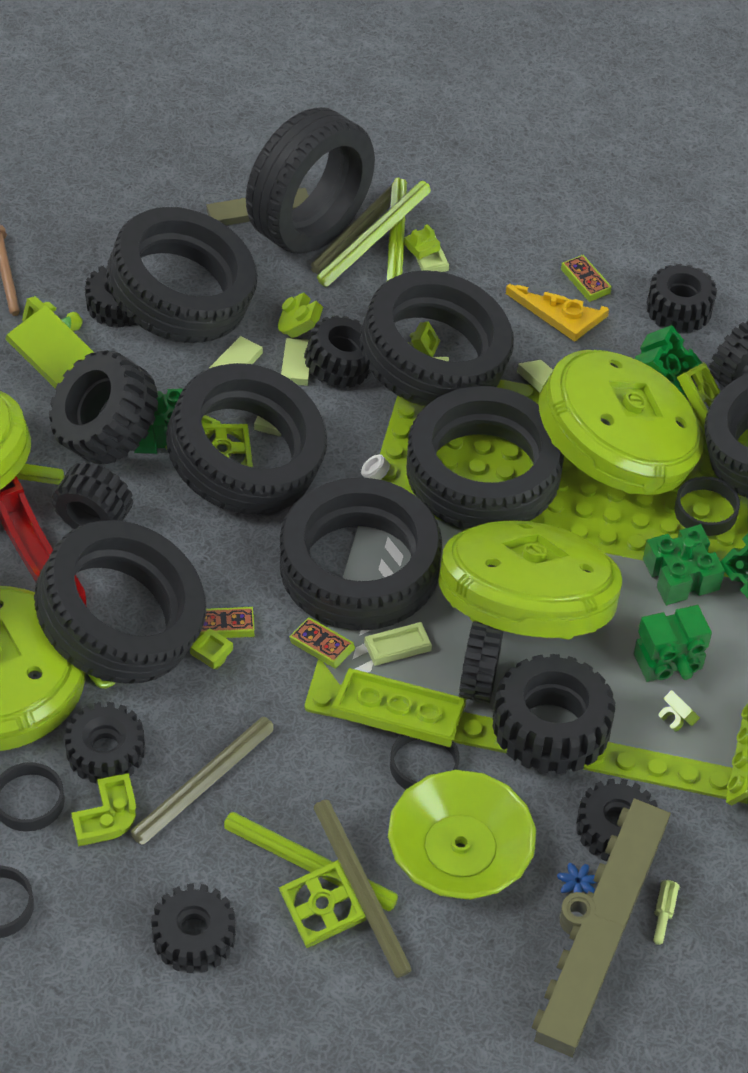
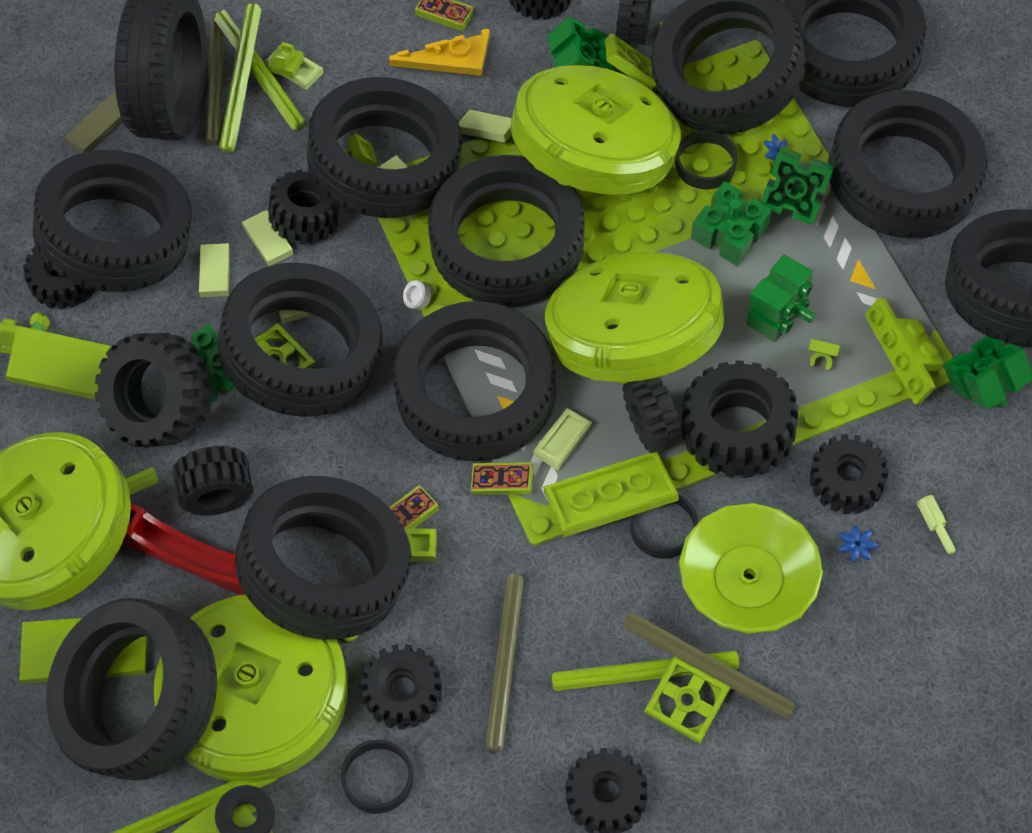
camera: 30 degrees left, 10 degrees up
(110, 819) = (461, 742): lime plate -> none
(299, 315) = (240, 200): lime plate -> none
(600, 927) = (913, 571): olive hinge -> none

